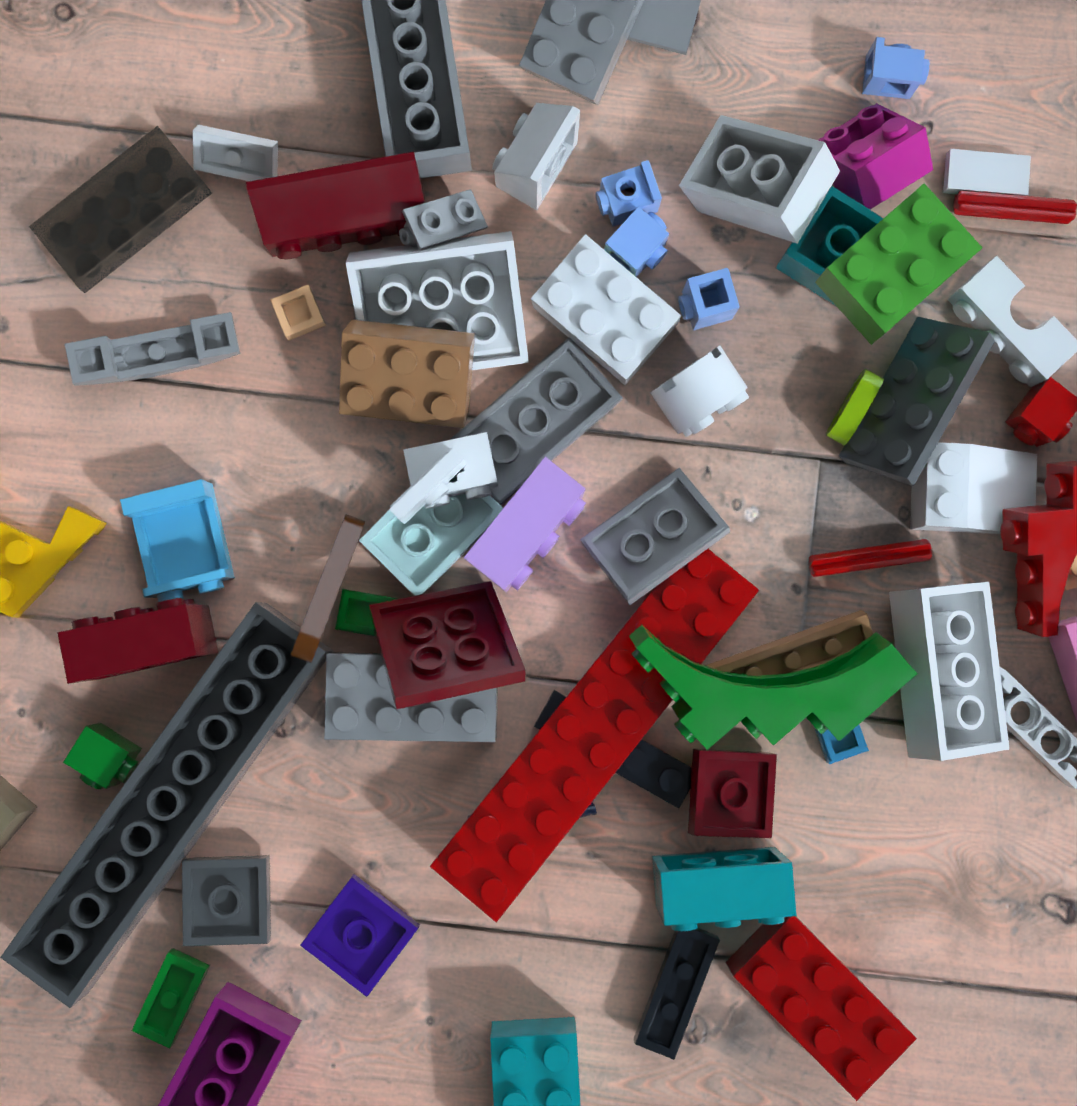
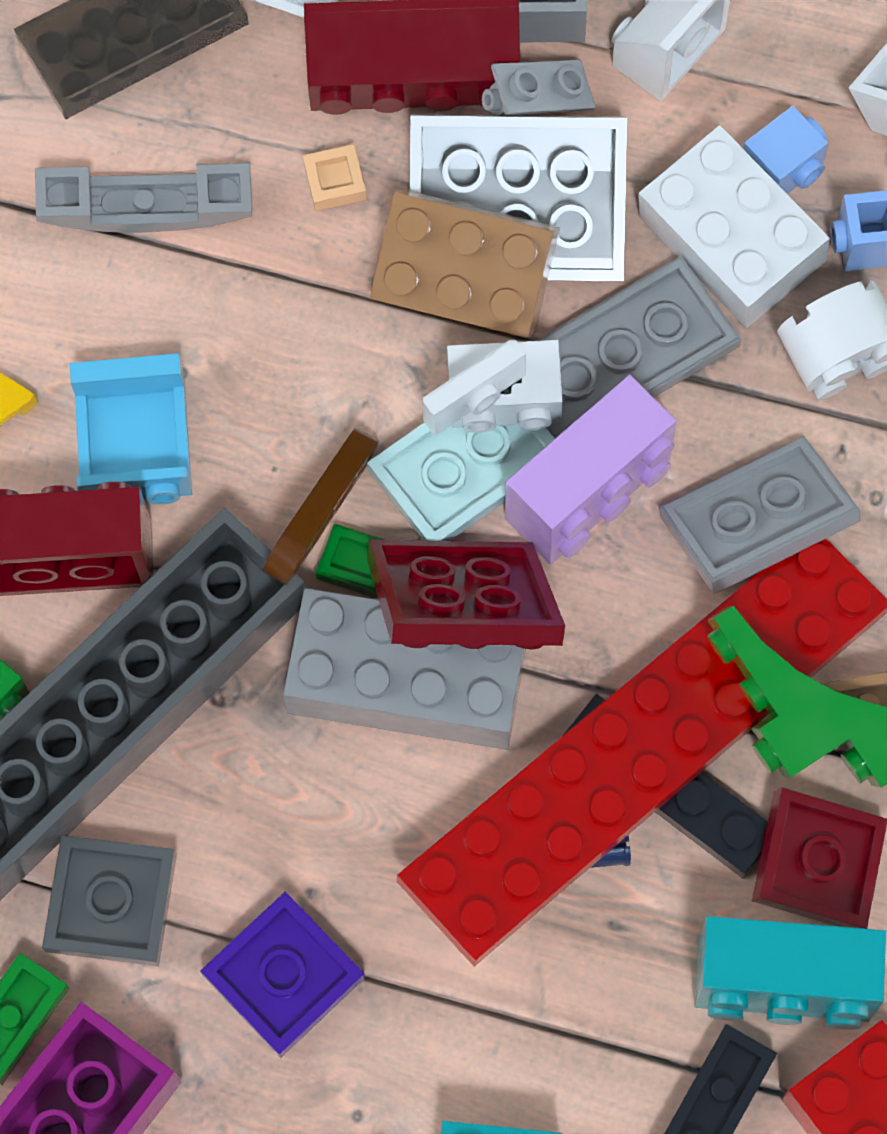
camera: 15 degrees right, 15 degrees down
(619, 206) = (765, 96): light blue brick -> none

